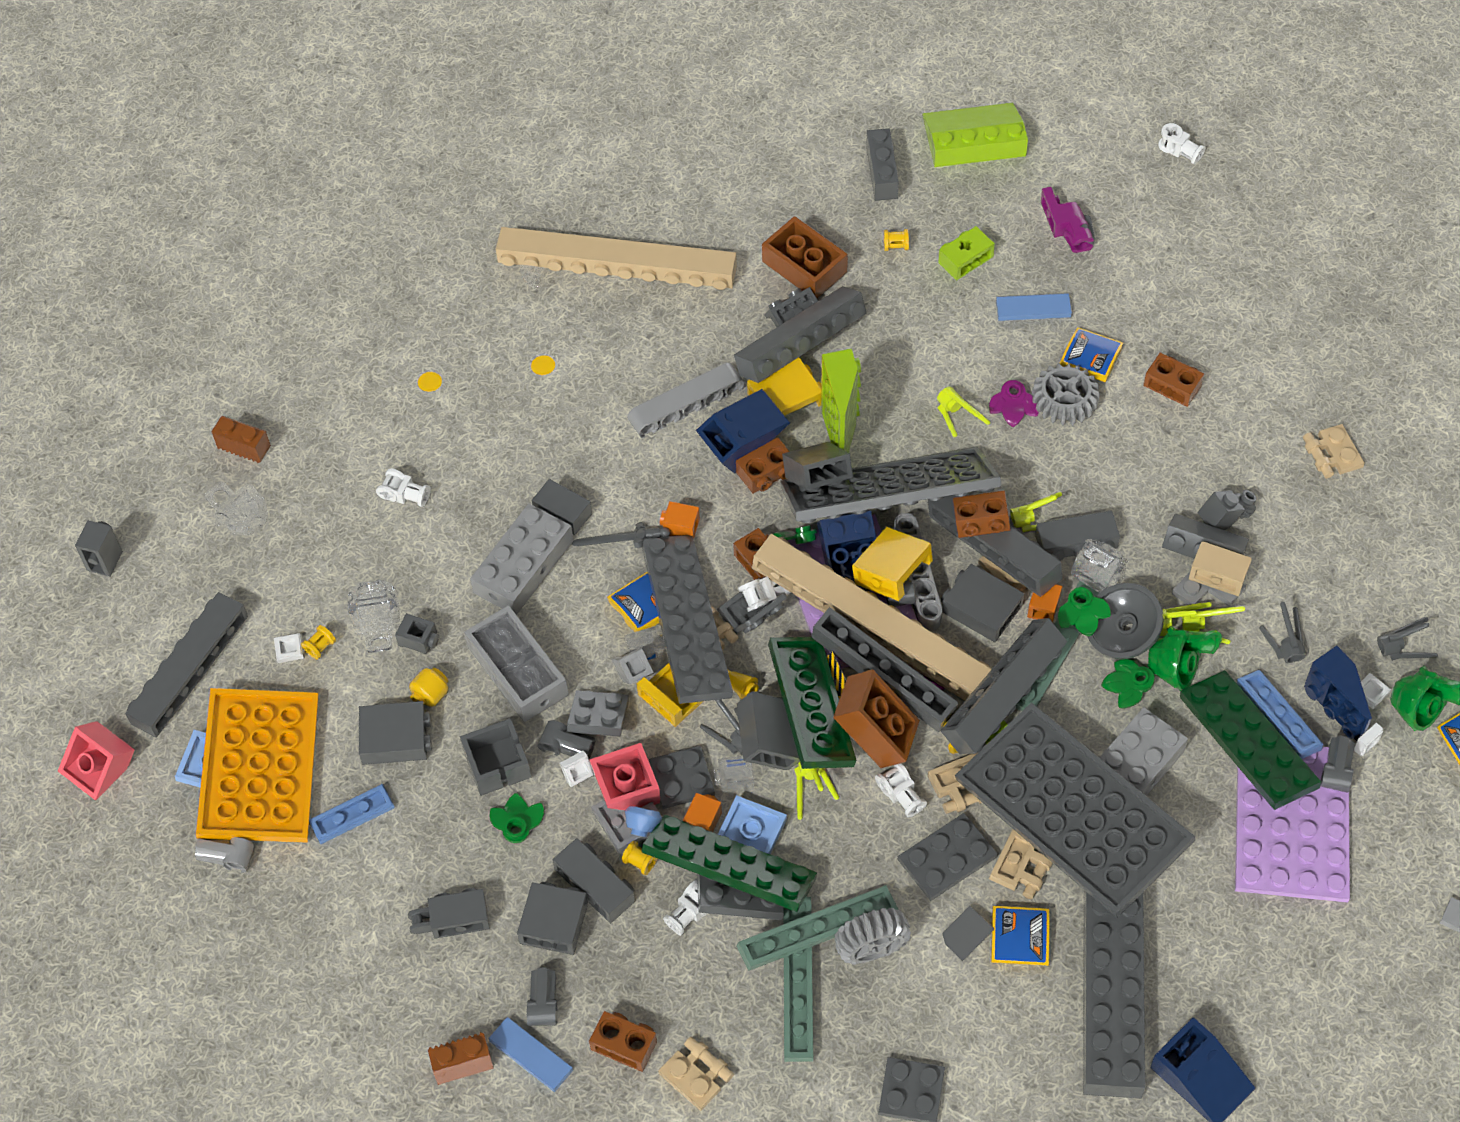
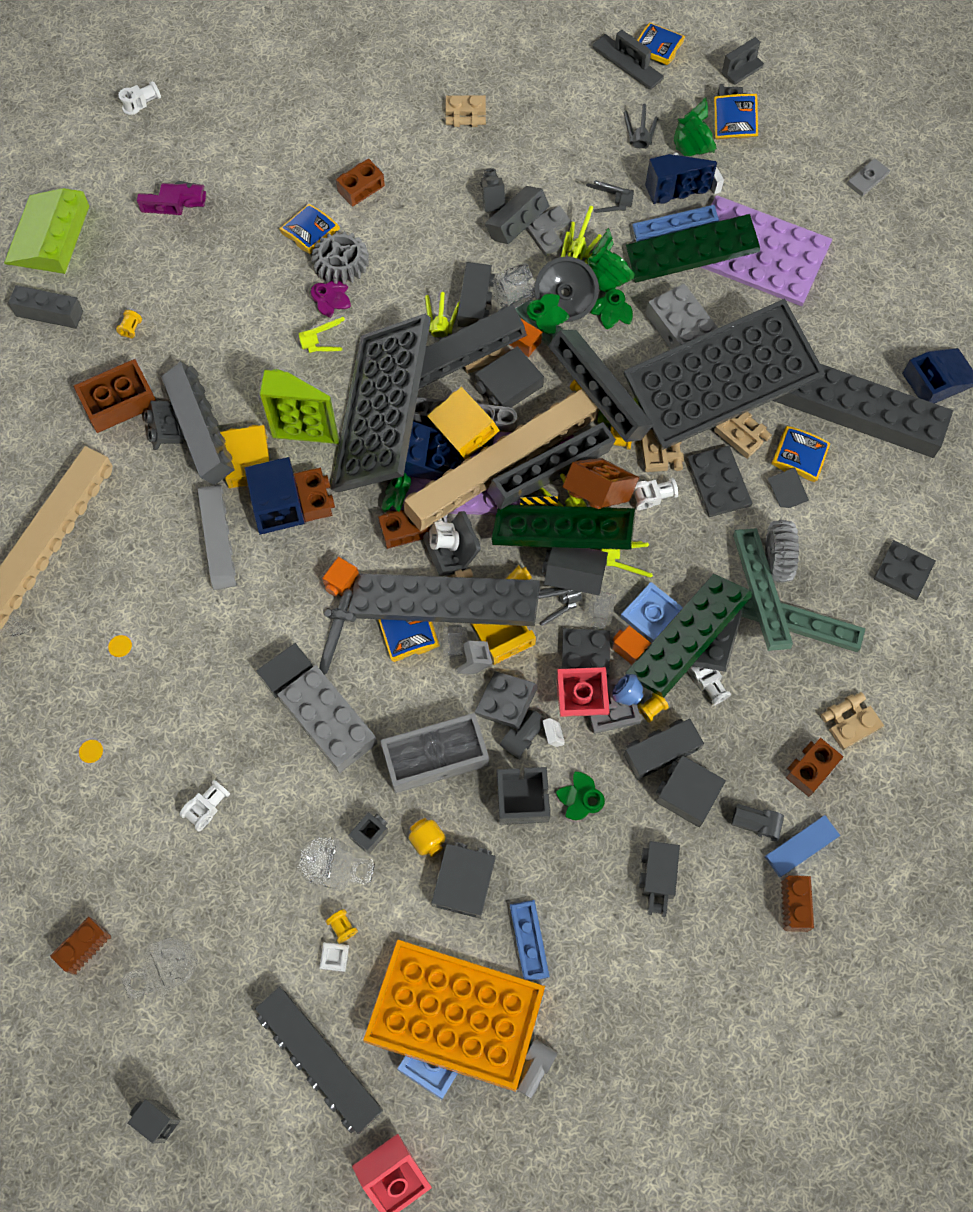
camera: 75 degrees left, 10 degrees up
(817, 466) = (342, 449): dark grey brick -> none
(966, 253) = (169, 278): lime brick -> none
(981, 514) = (440, 344): dark orange brick -> none
(1033, 307) = (244, 252): medium blue tile -> none
(1220, 568) = (548, 210): tan panel -> none
(1337, 771) = (738, 203): dark grey piece -> none

